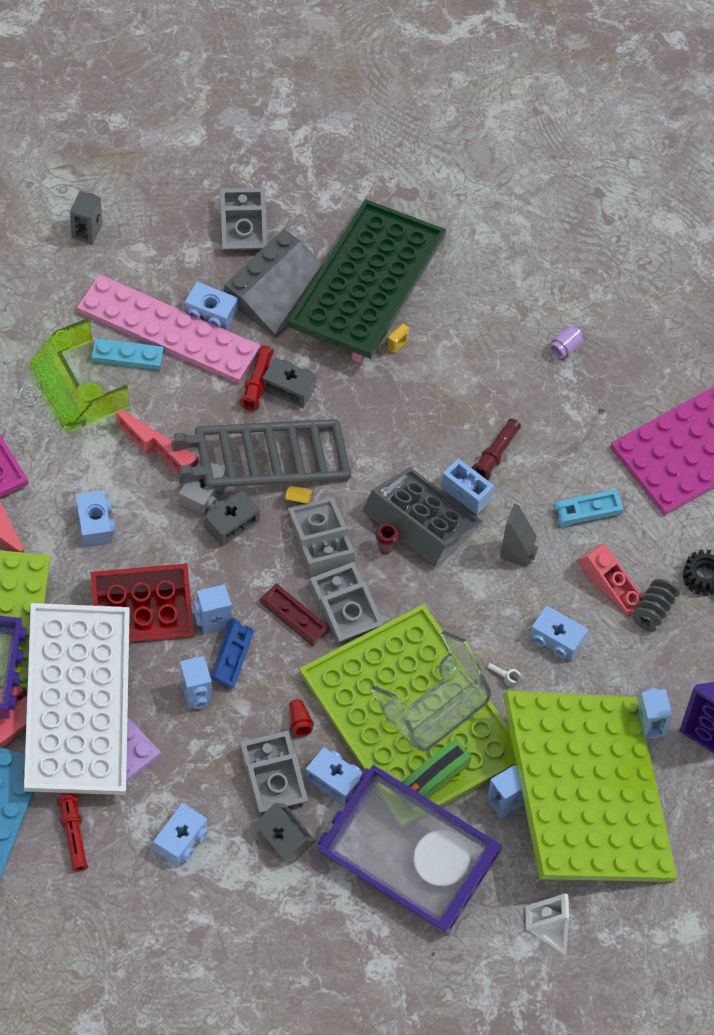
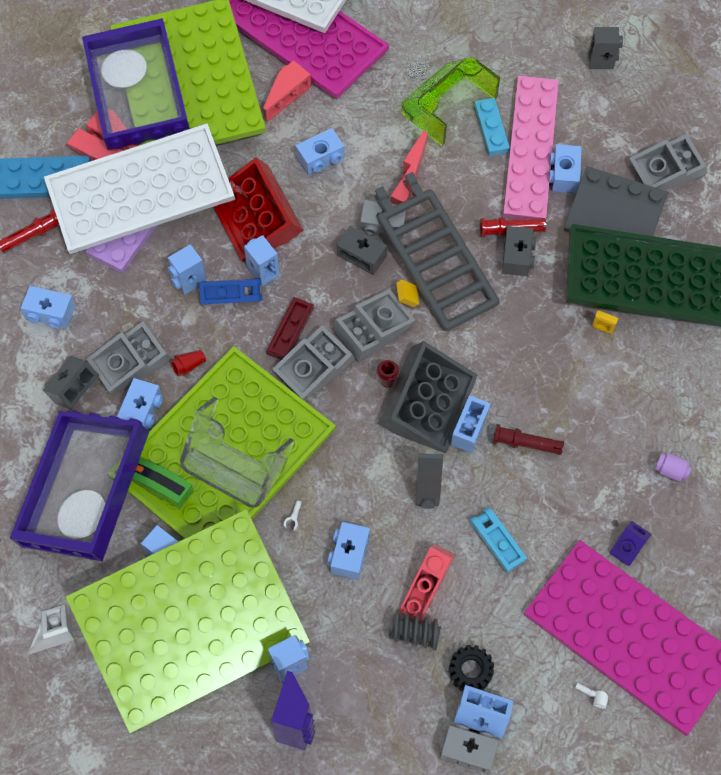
camera: 75 degrees right, 5 degrees up
(629, 403) = (630, 543): none -> dark purple bracket

